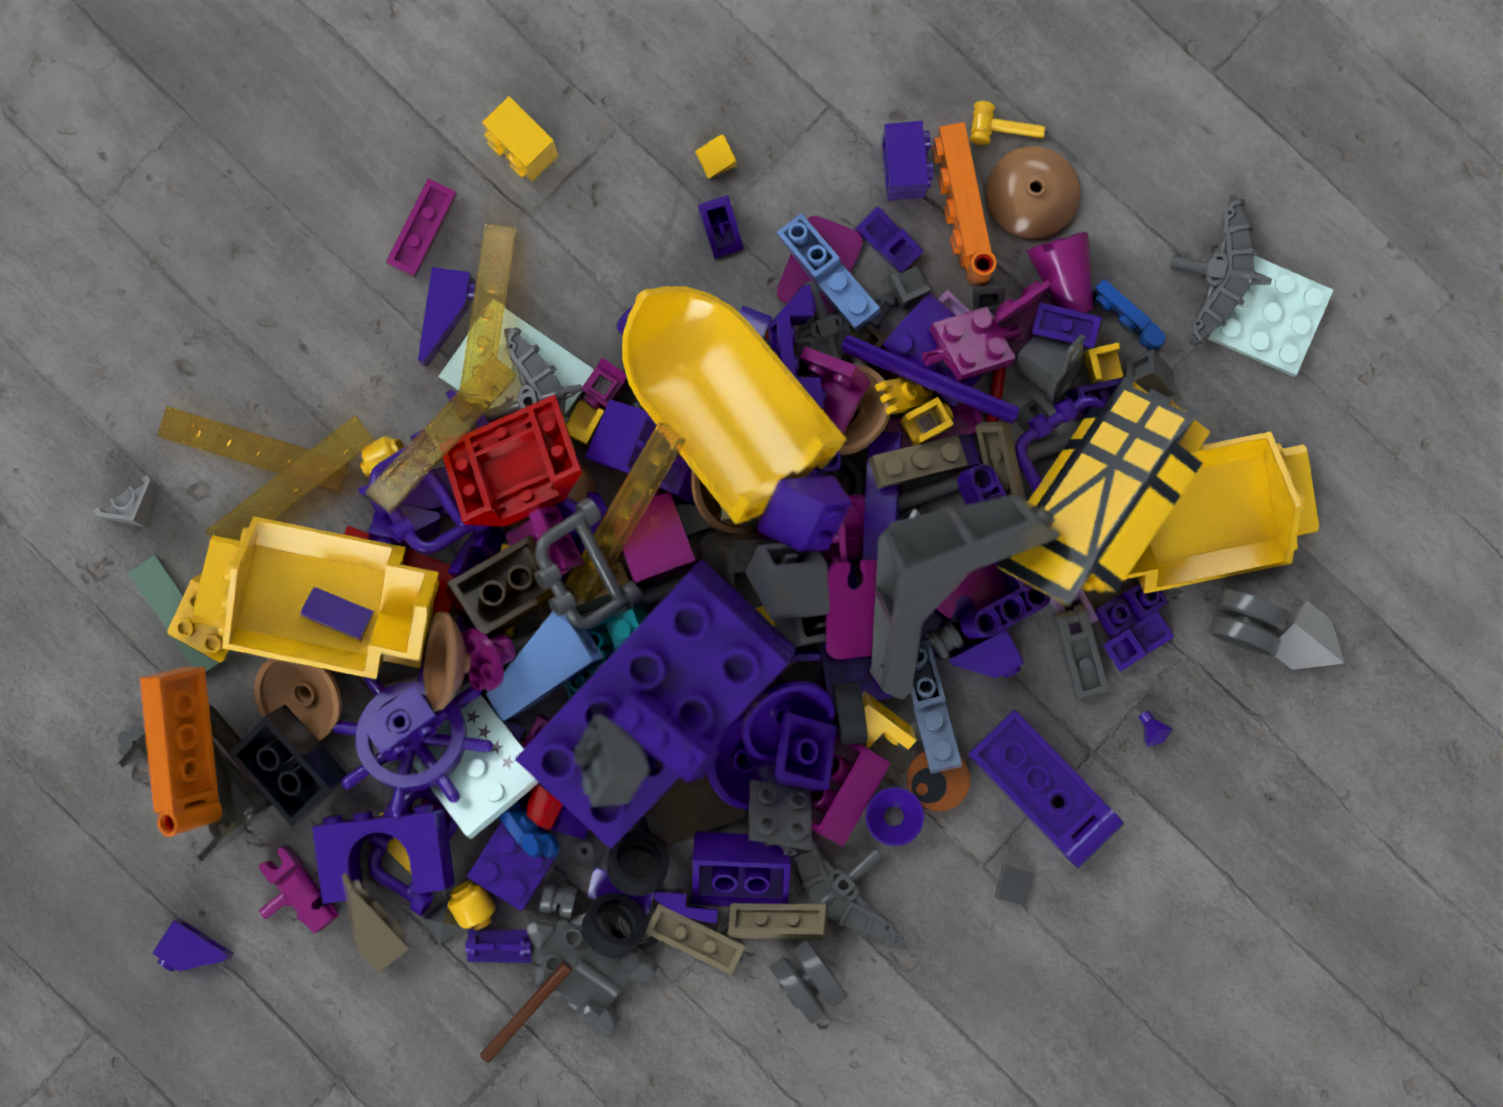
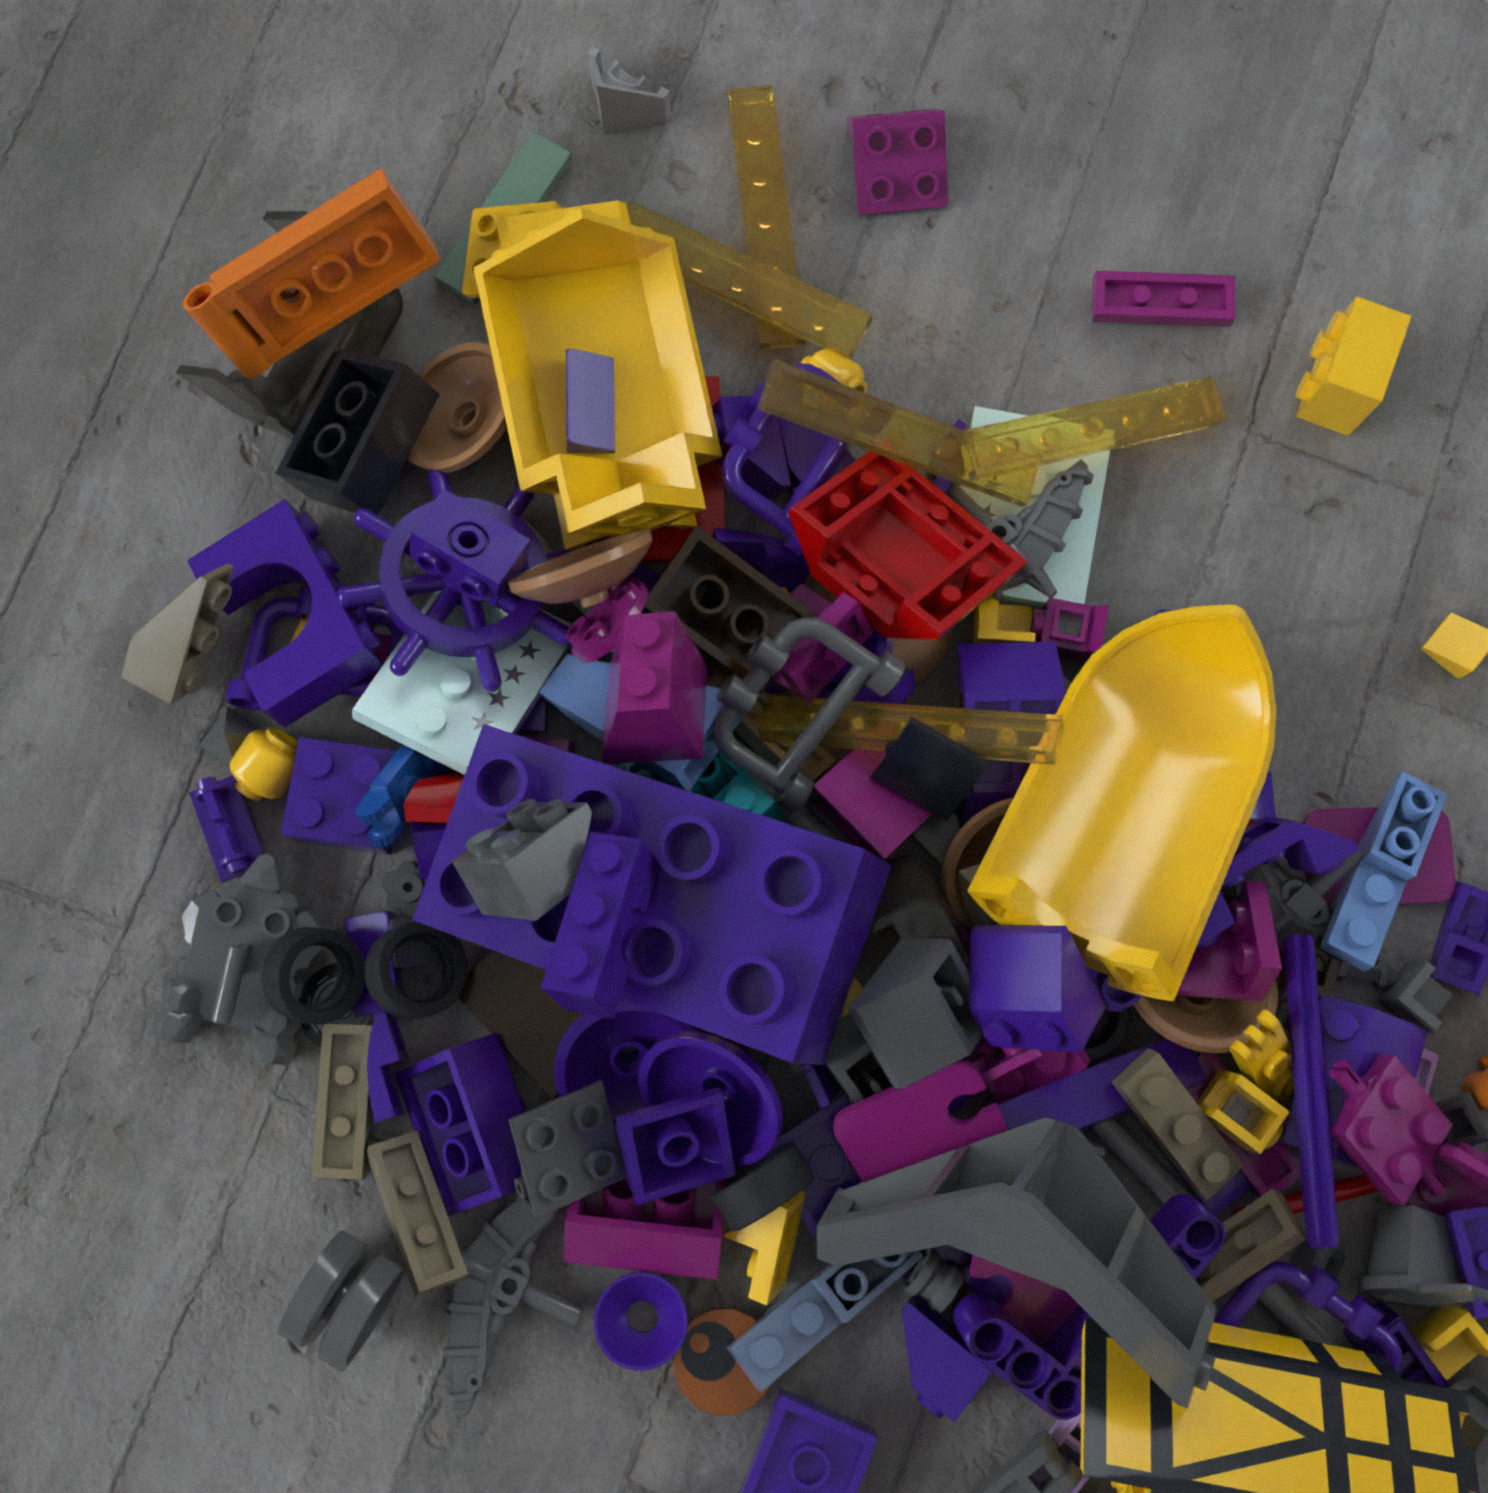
camera: 65 degrees right, 5 degrees down
(188, 948) = (64, 417): dark purple slope -> none
(253, 348) = (899, 160): none -> magenta bracket
(296, 890) = (195, 522): magenta piece -> none
(445, 306) = (1066, 373): dark purple slope -> none
(526, 1011) = (147, 905): reddish brown bar -> none
(541, 652) = (654, 692): none -> magenta slope
(558, 899) = (324, 881): dark grey wheel -> none
(655, 511) = (929, 769): none -> black piece
(720, 226) = (1369, 689): dark purple slope -> none

